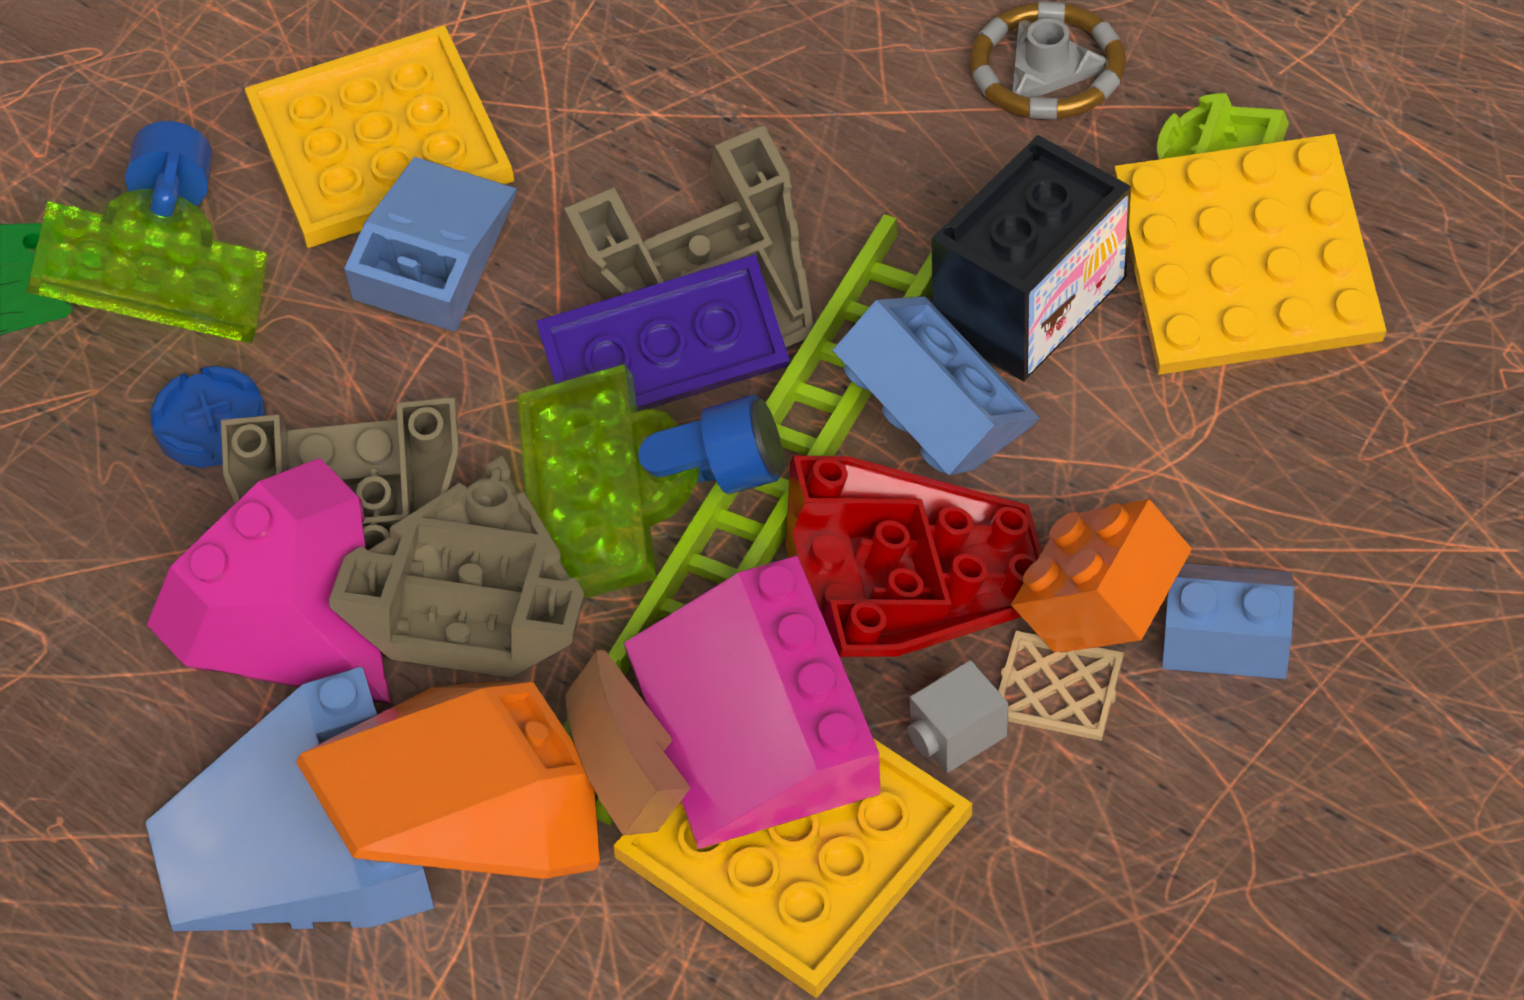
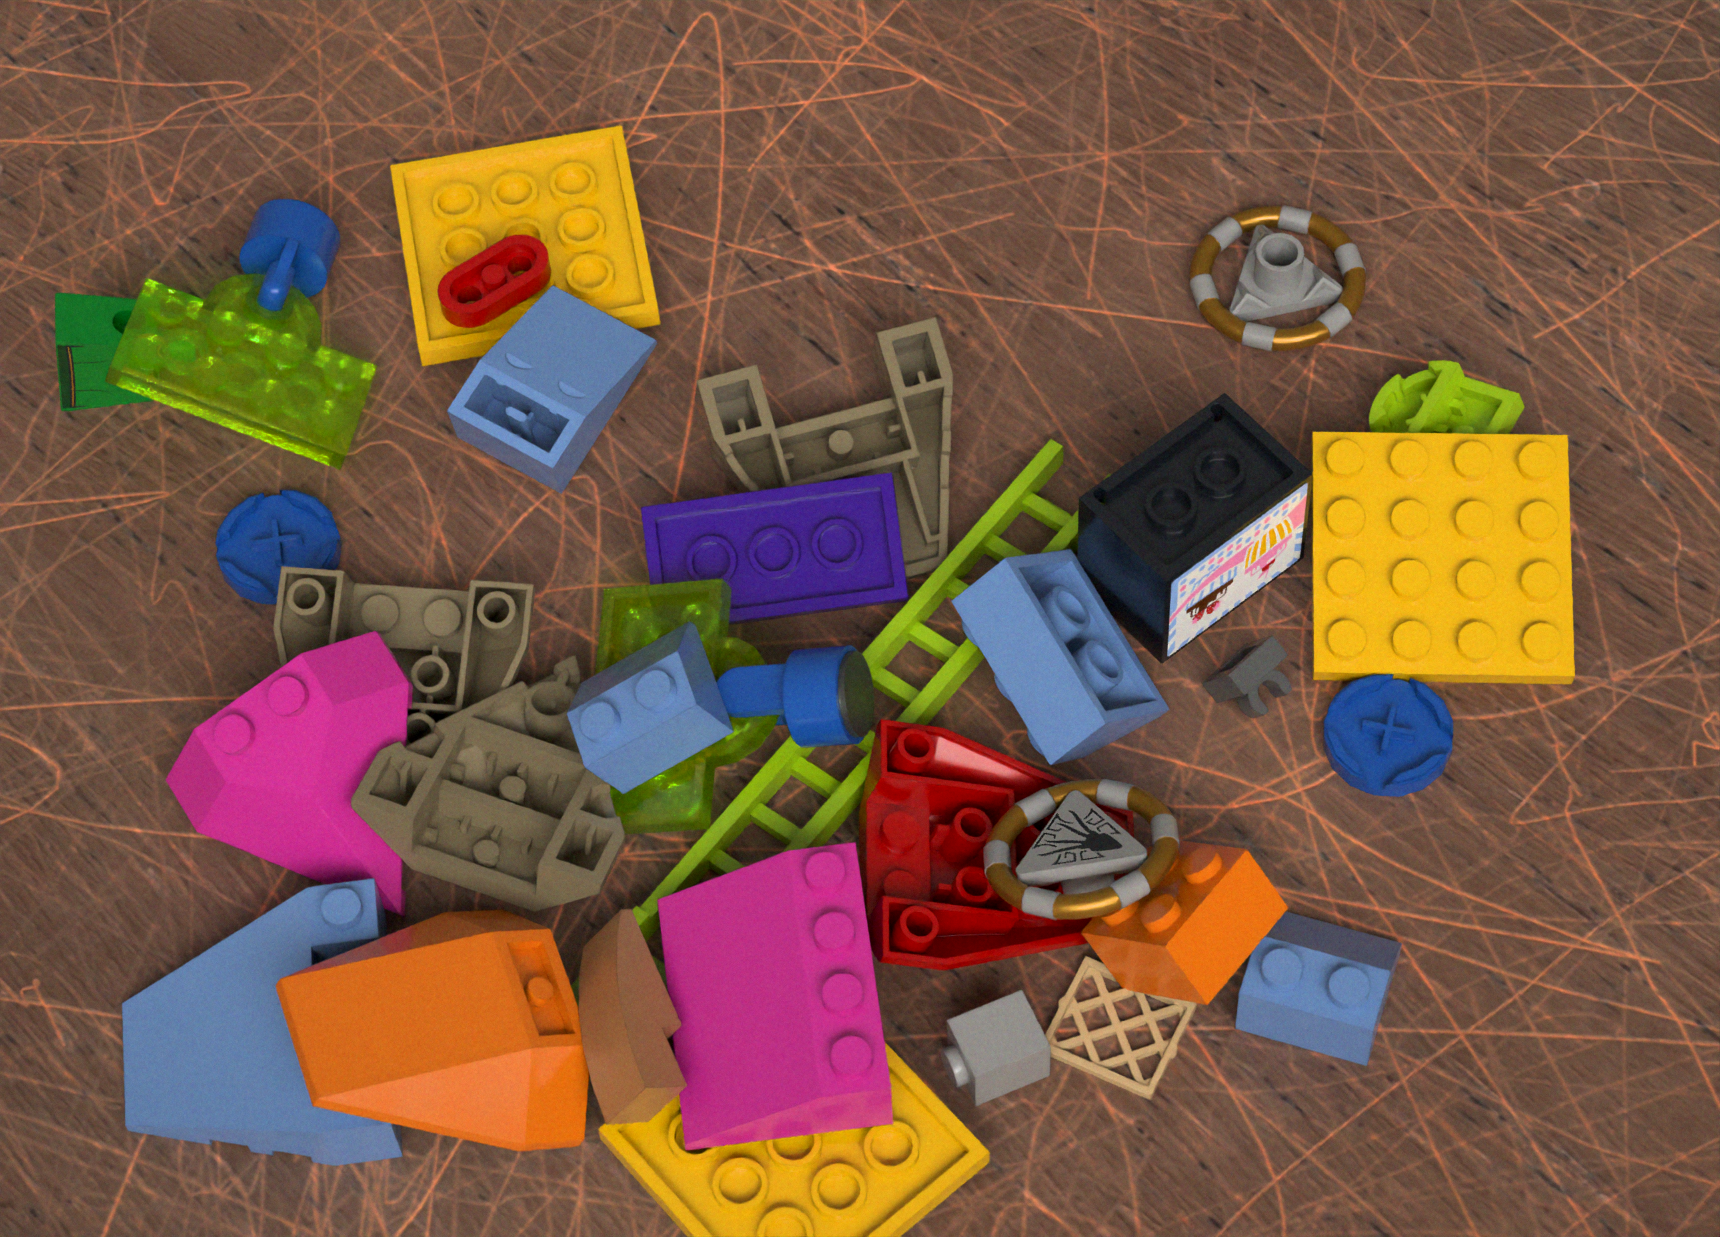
camera: 10 degrees right, 5 degrees up
(361, 162) = (492, 282): none -> red plate
(584, 484) = (649, 711): none -> medium blue slope
(998, 531) = (1081, 850): none -> piece
(1101, 375) = (1246, 672): none -> dark grey tile
(1236, 406) = (1388, 735): none -> blue tile

